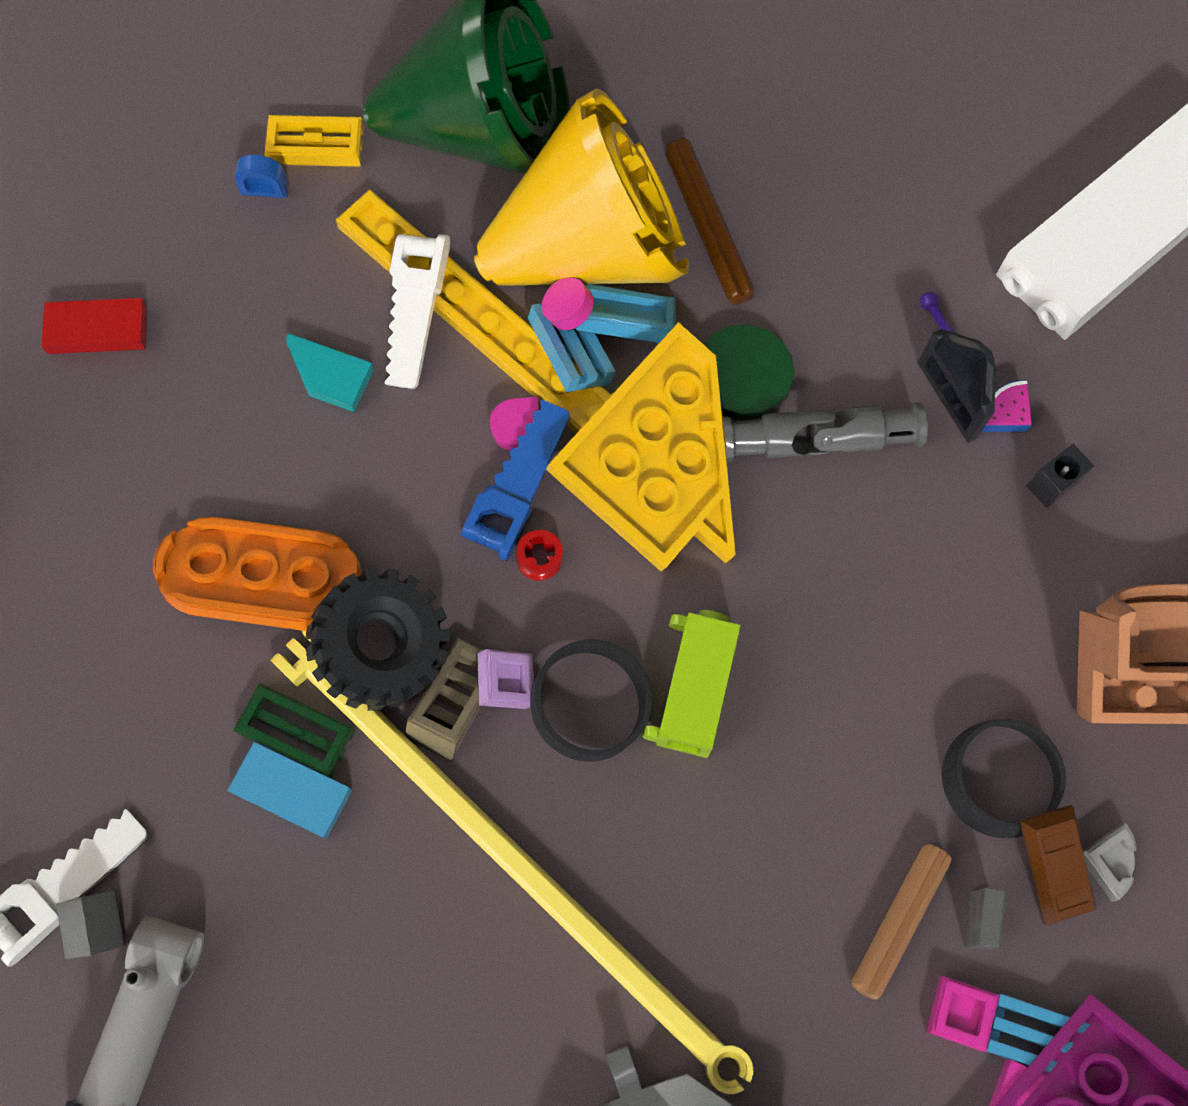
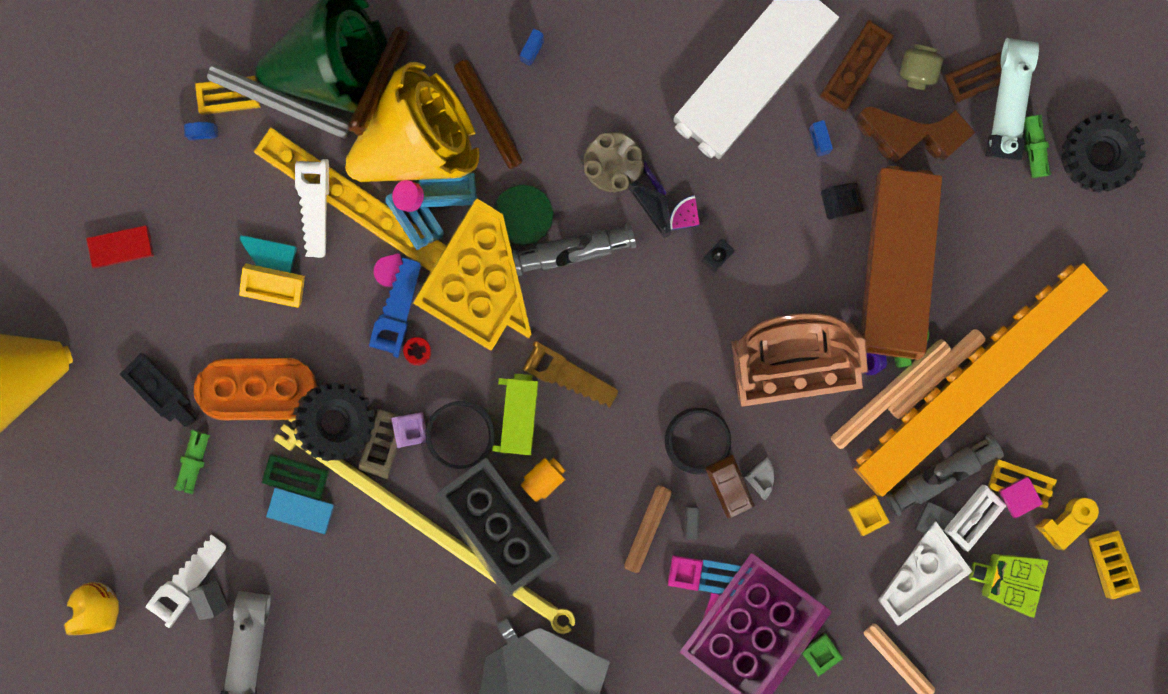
camera: 10 degrees left, 15 degrees up
(96, 550) = (157, 390): none -> black hinge
(123, 677) = (192, 461): none -> bright green pin
(321, 415) = (271, 285): none -> yellow tile
(391, 152) = (278, 101): none -> light grey axle
(534, 135) = (378, 81): none -> reddish brown axle
(635, 871) = (496, 527): none -> dark grey brick
(727, 799) = (543, 479): none -> light orange brick
(790, 135) = (532, 47): none -> blue tile
(791, 633) = (569, 375): none -> pearl gold piece
(898, 312) = (613, 161): none -> dark tan dish

